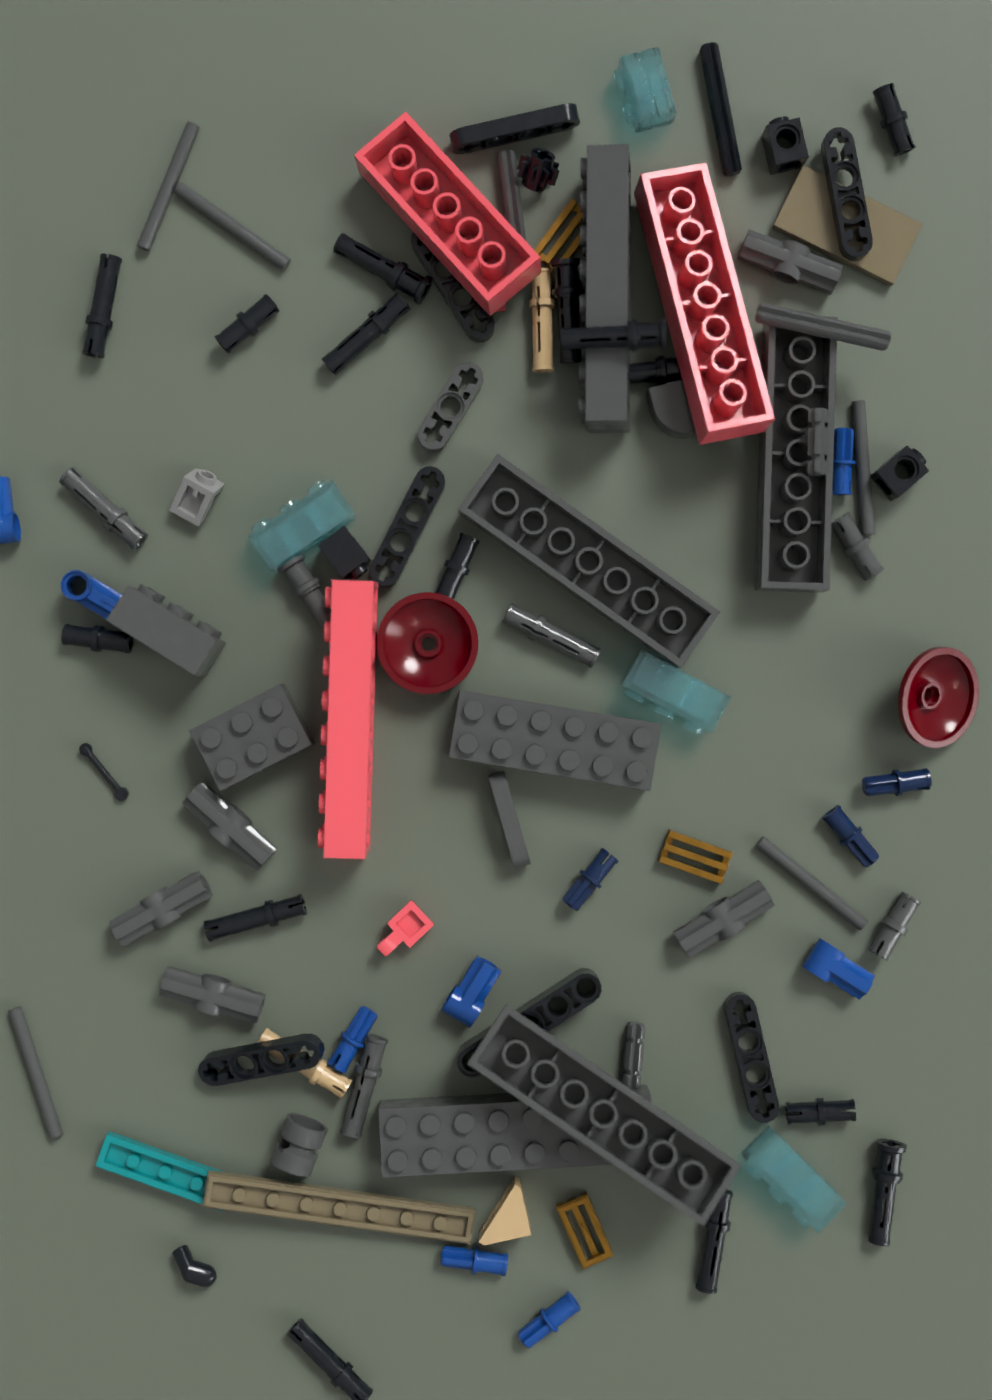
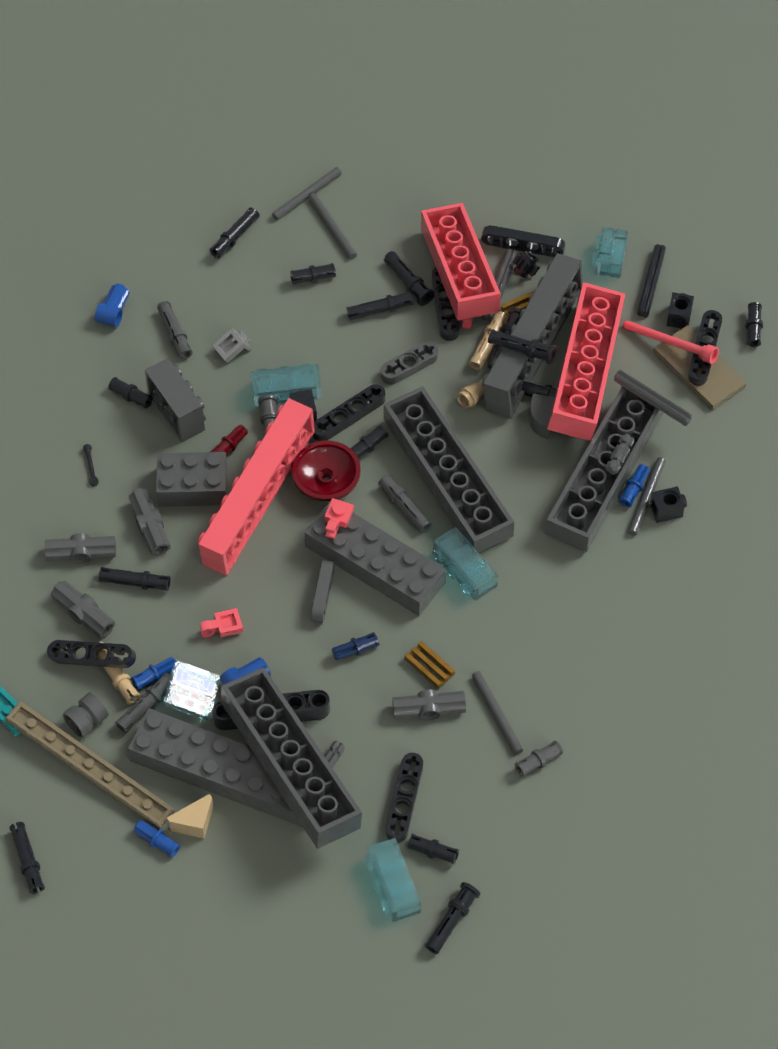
camera: 25 degrees right, 30 degrees down
(97, 596) = (138, 368): blue piece -> none
(271, 653) = (229, 443): none -> dark red axle
(414, 1044) = (191, 690): none -> tile
(484, 717) = (337, 515): none -> coral plate
(549, 1320) = (184, 897): blue axle -> none
(561, 419) = (470, 395): none -> tan cone
(573, 1204) = (237, 874): pearl gold tile -> none
(713, 1245) = (315, 904): black pin -> none
(790, 262) = (654, 369): dark grey piece -> none
(833, 966) = (485, 761): blue piece -> none
(851, 836) = (536, 694): dark blue axle -> none
(856, 546) = (621, 534): dark grey pin -> none
(860, 210) = (707, 353): none -> coral piece
(897, 782) = (581, 675): dark blue axle -> none
(938, 697) = (642, 629): dark red dish -> none

